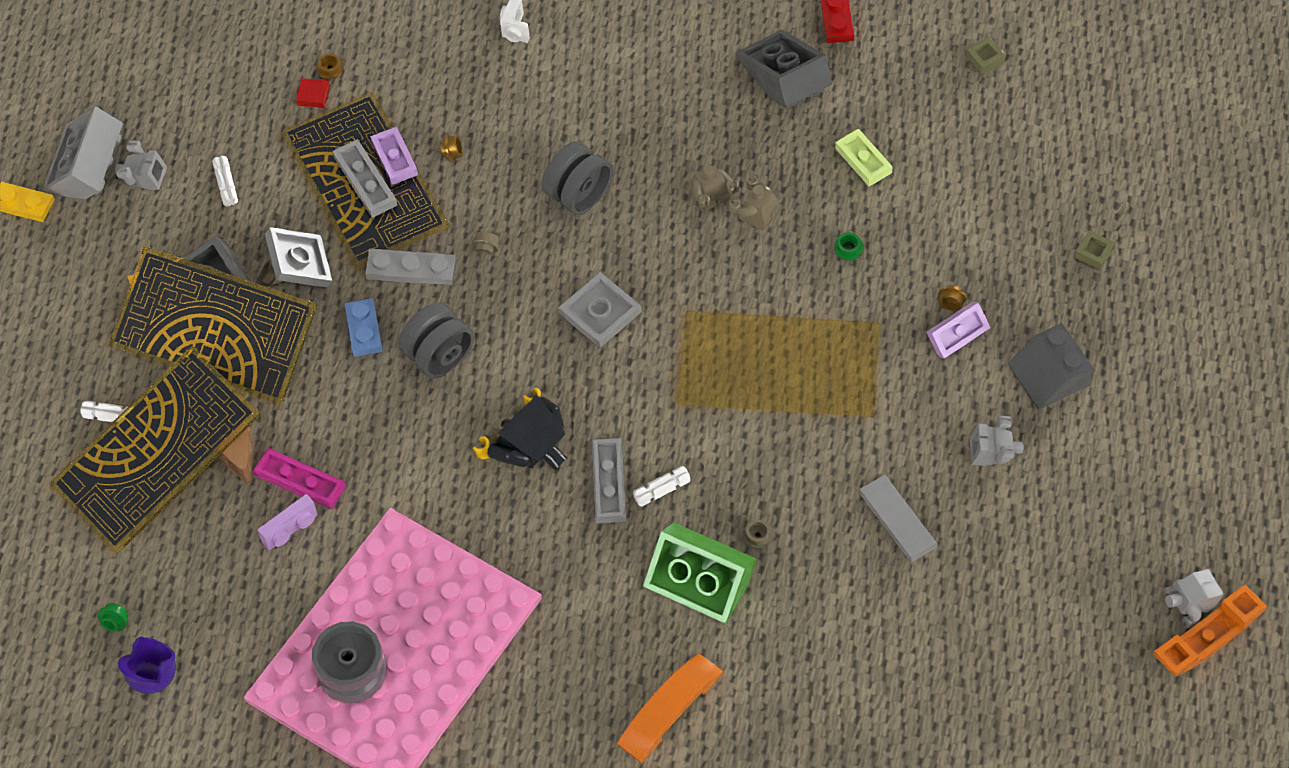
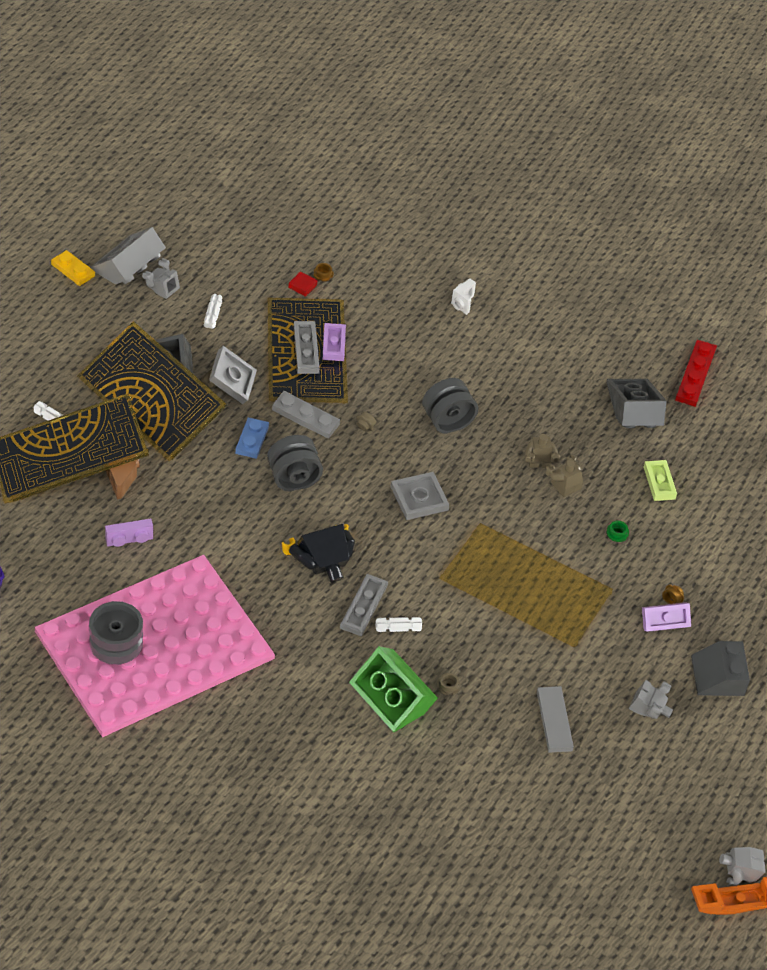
camera: 15 degrees right, 10 degrees down
(299, 478) = (152, 508): dark pink tile -> none
(451, 147) = (376, 354): pearl gold plate -> none
(667, 706) = (321, 763): orange slope -> none

